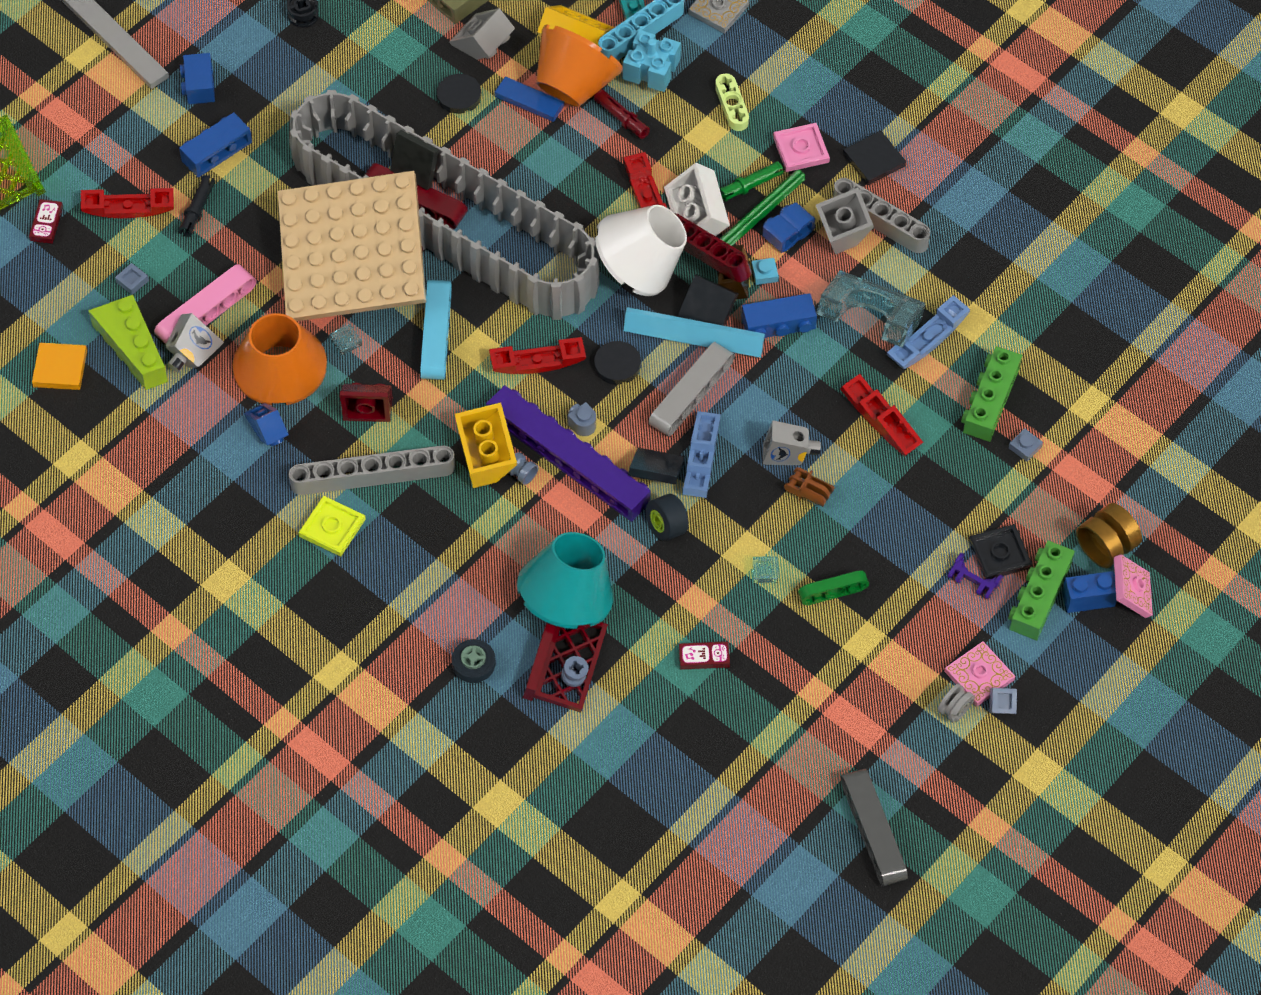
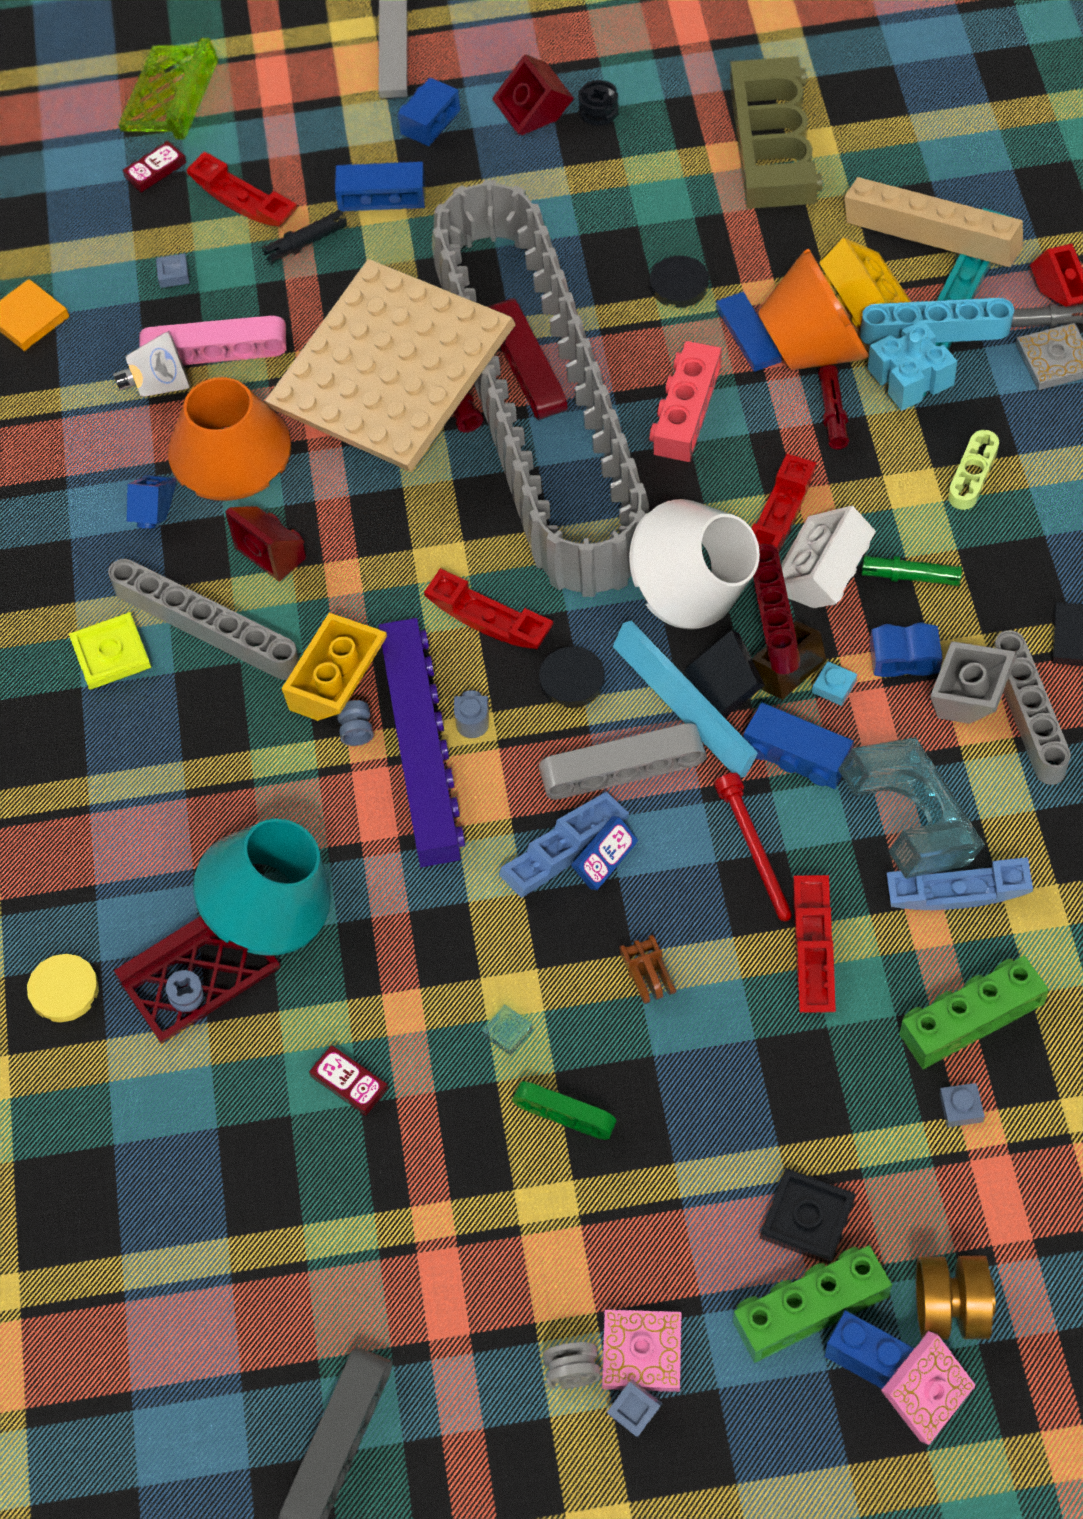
camera: 45 degrees right, 0 degrees up
(128, 335) = (109, 329): lime wedge -> none
(256, 30) = (532, 96): none -> dark red slope
(345, 339) = (313, 464): clear light blue plate -> none
(415, 156) = (544, 313): pearl dark grey tile -> none
(436, 329) = (412, 513): medium azure beam -> none
(465, 657) = (103, 887): black wheel -> none
(483, 34) = (761, 234): light grey slope -> none
(497, 722) = (62, 987): none -> light yellow tile
(535, 162) = (686, 401): none -> coral brick
(656, 466) = (496, 821): black tile -> none
(667, 517) = (452, 888): black wheel -> none
(729, 443) = (604, 852): none -> tile
(764, 207) = (891, 611): green axle -> none
(765, 365) = (731, 790): none -> red piece
(788, 444) = (665, 901): light grey torso -> none
(801, 147) = (1007, 568): bright pink plate -> none
(984, 584) = (740, 1198): dark purple piece -> none

